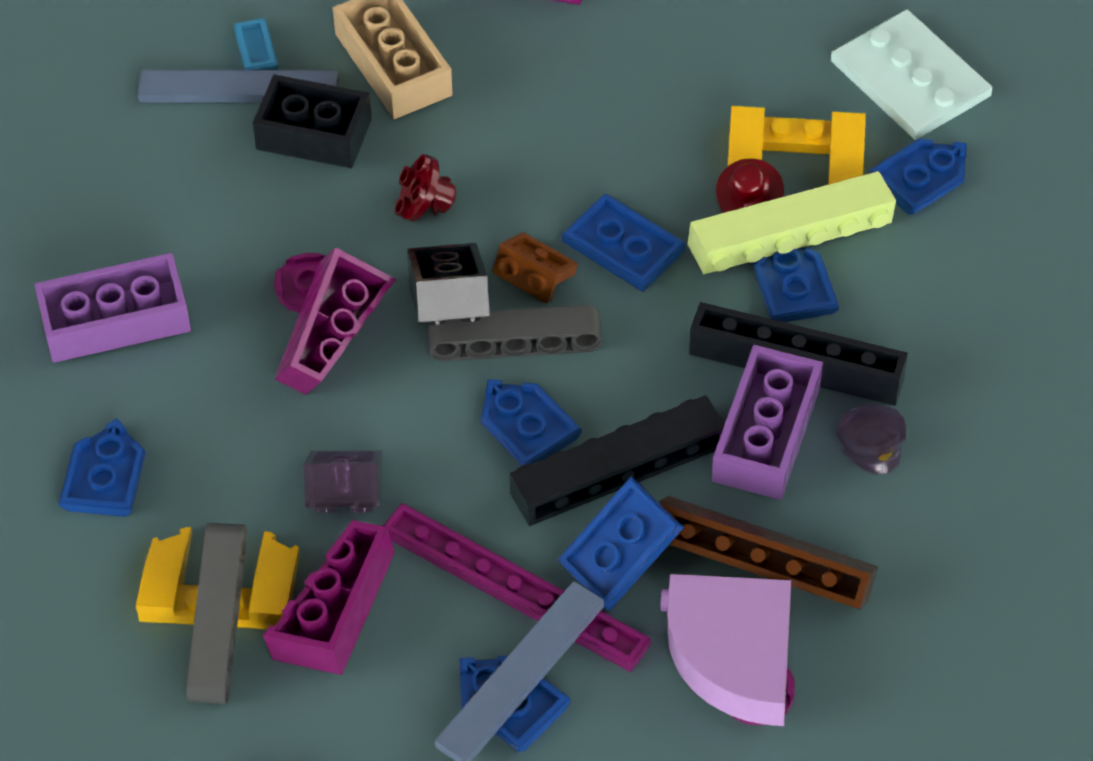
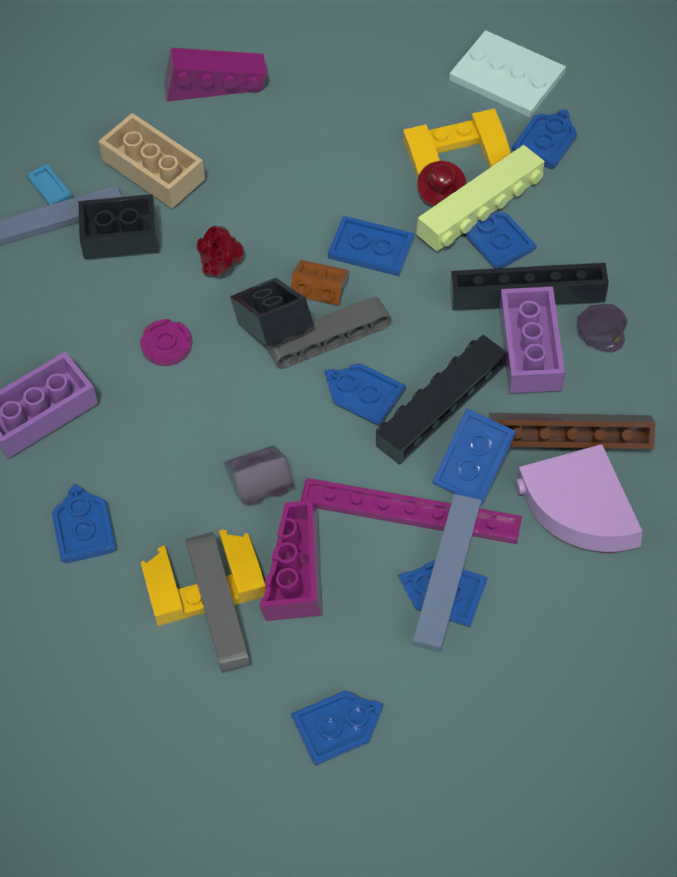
camera: 20 degrees left, 5 degrees up
(332, 314) = (197, 361): magenta wedge -> none

